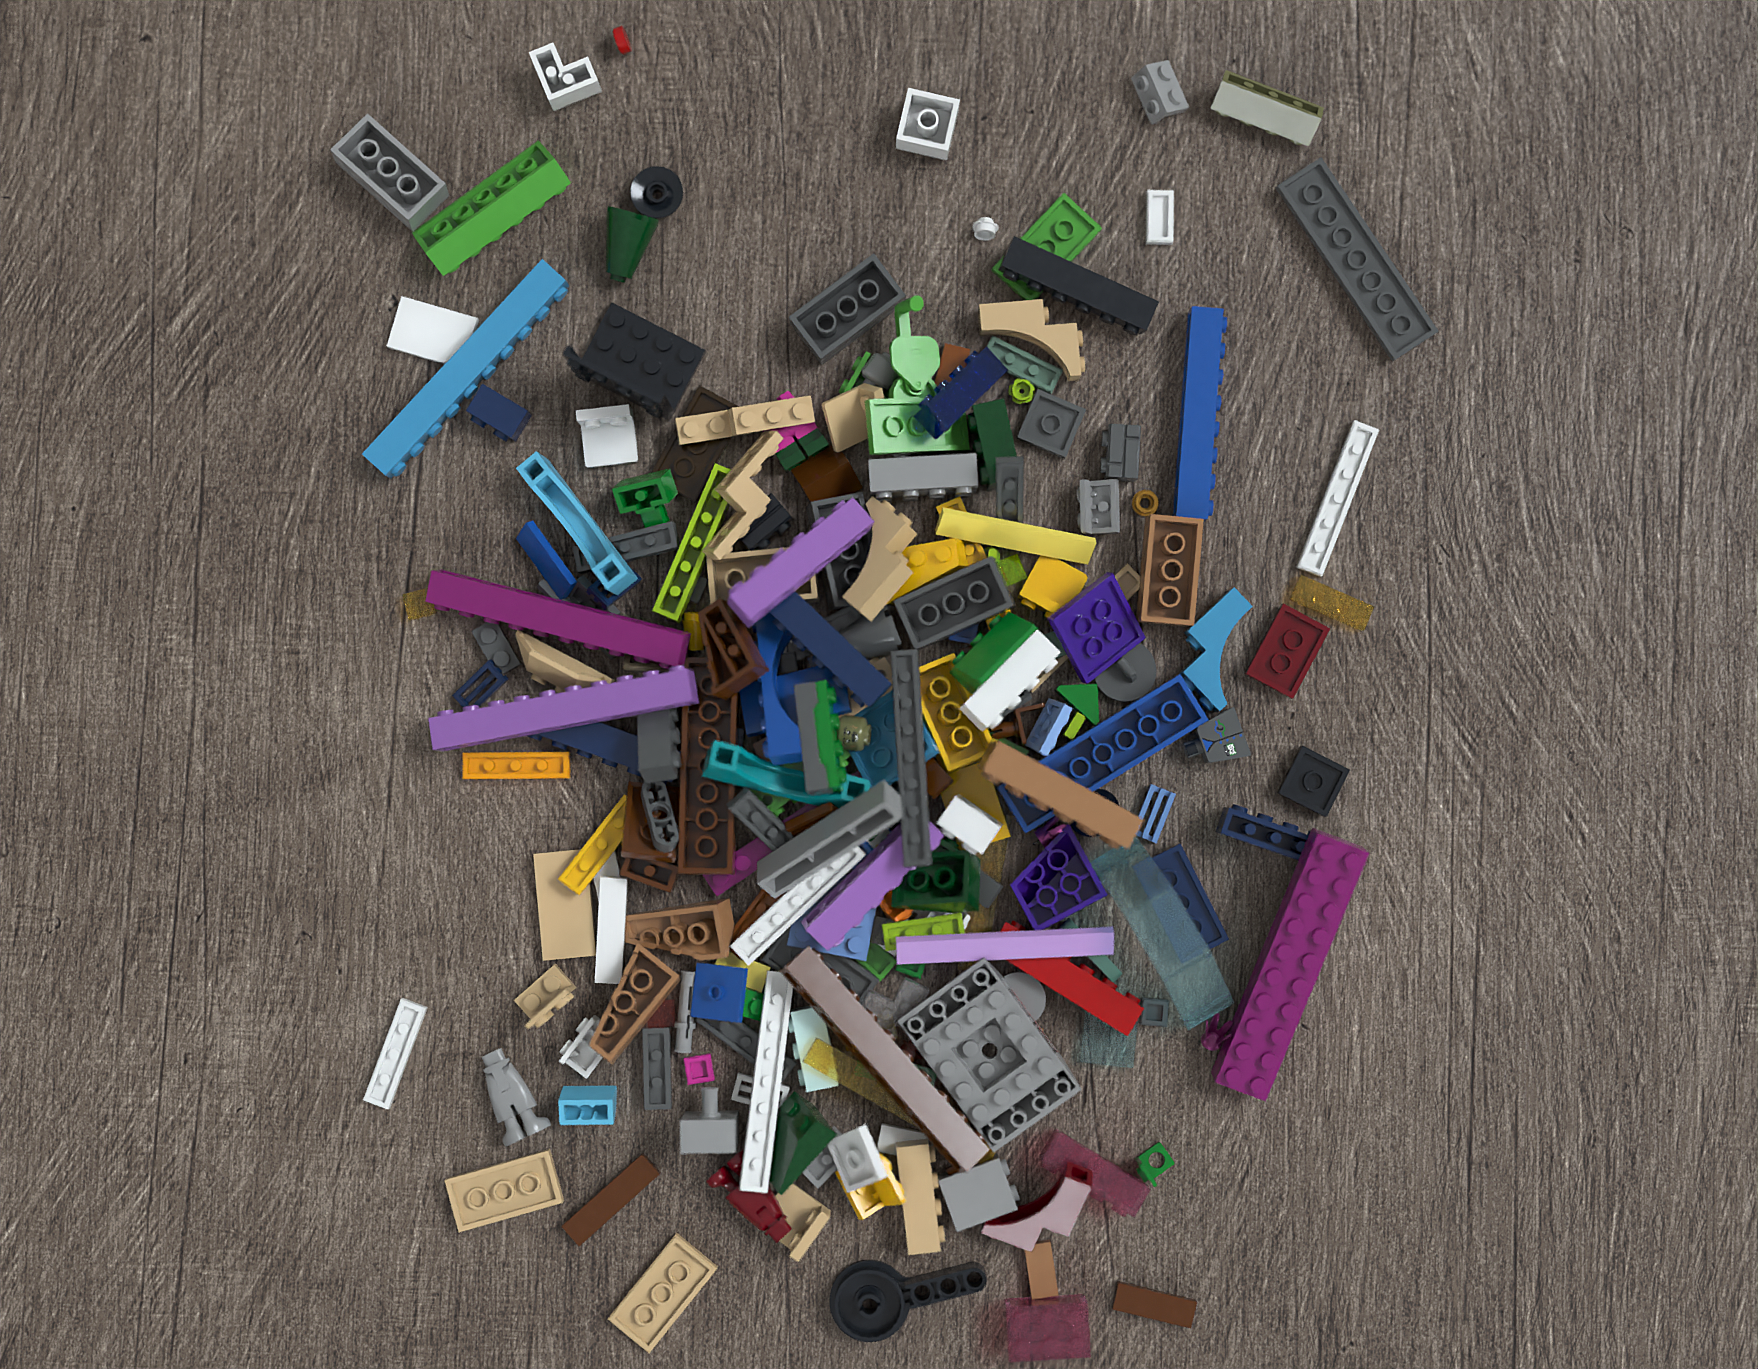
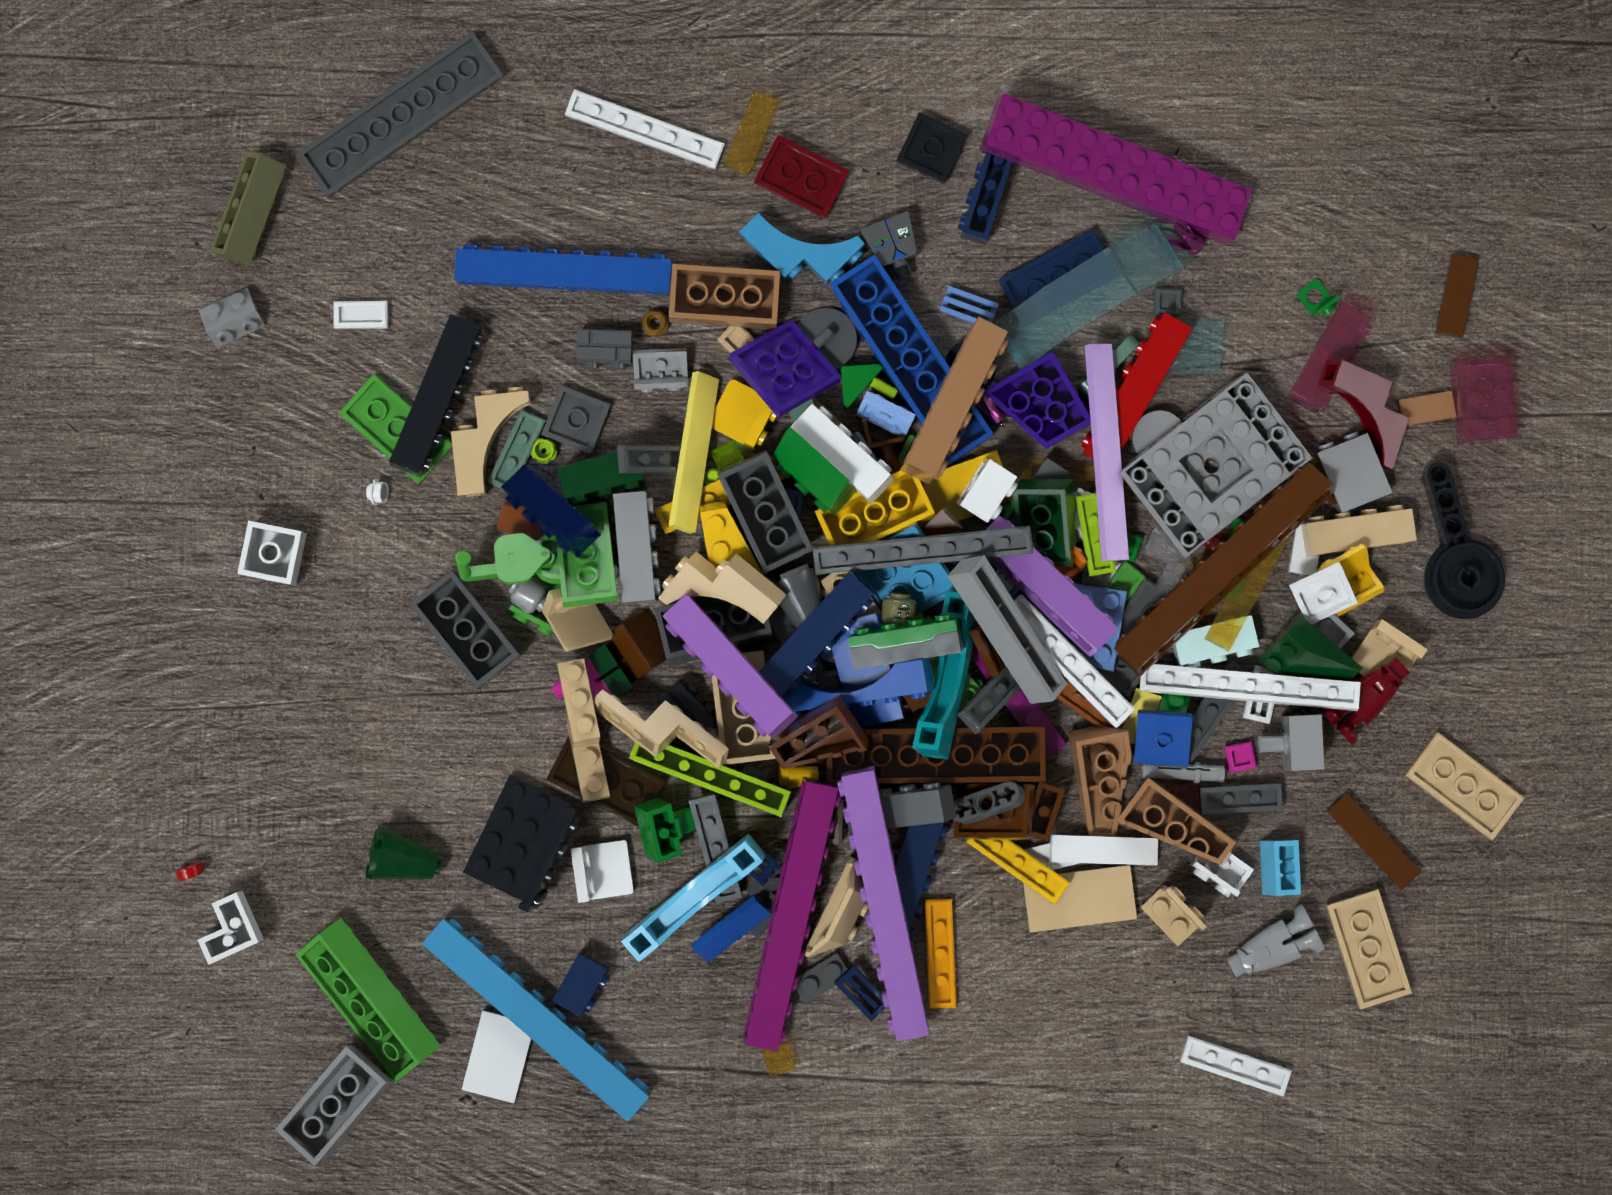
camera: 90 degrees left, 0 degrees up
(656, 180) = (334, 831): black dish -> none

